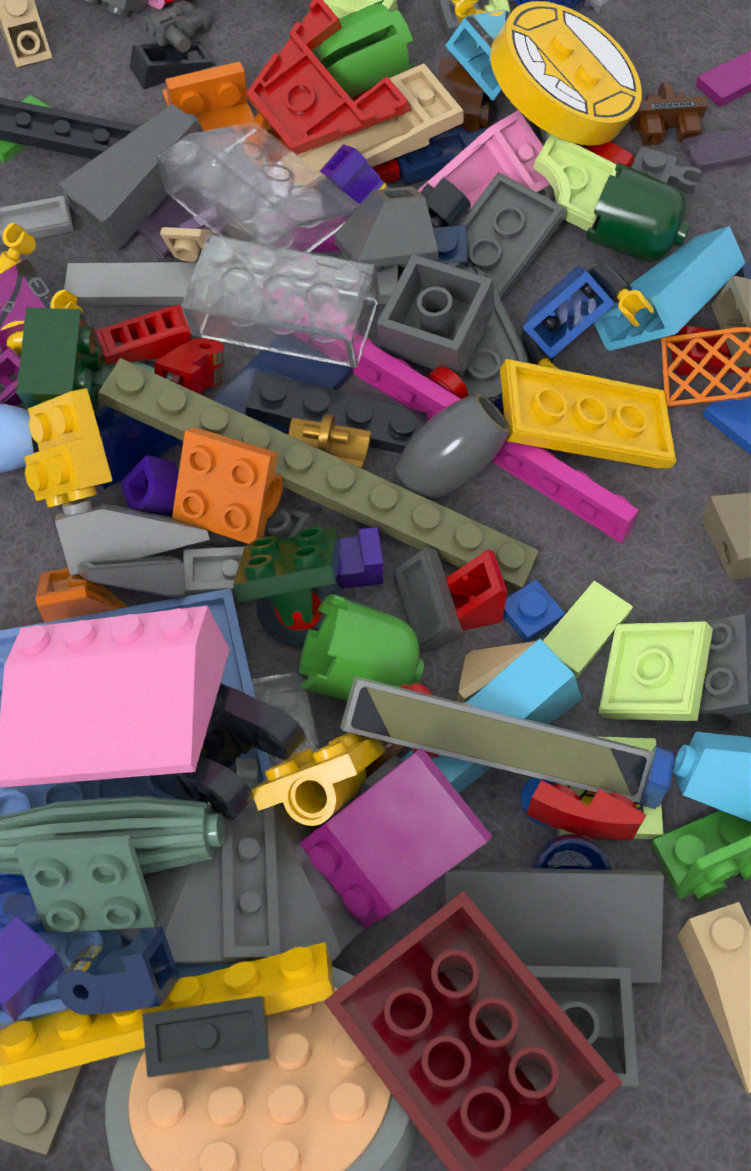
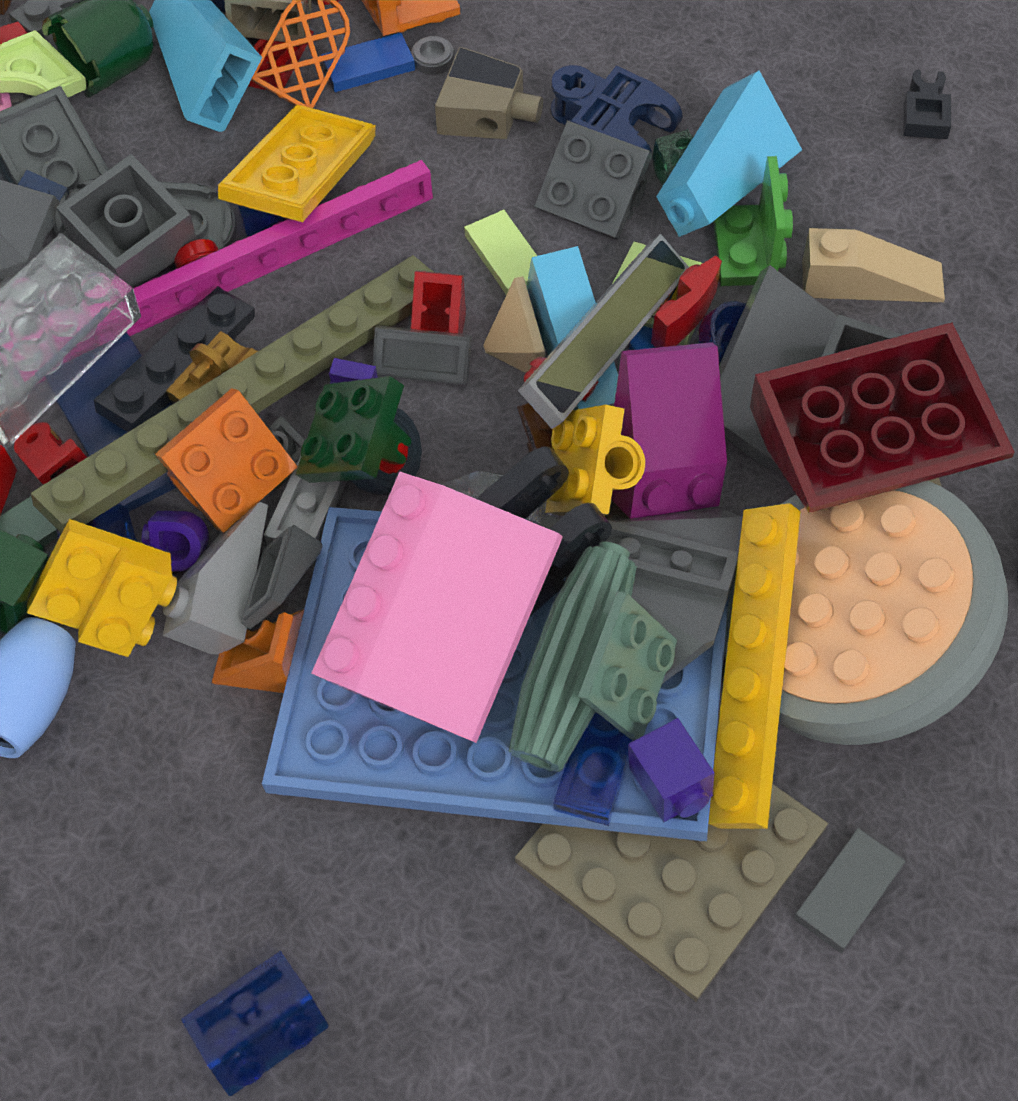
camera: 65 degrees left, 0 degrees up
(120, 978) = (716, 677): dark blue leg -> none
(206, 1036) = (804, 612): black plate -> none
(359, 644) = (461, 416): bright green cylinder -> none
(452, 447) = (283, 267): dark grey piece -> none
(532, 611) = (477, 283): blue plate -> none
(575, 306) = (180, 120): blue torso -> none
(656, 671) = (579, 209): yellowish green tile -> none
(658, 777) = (680, 238): blue tile -> none

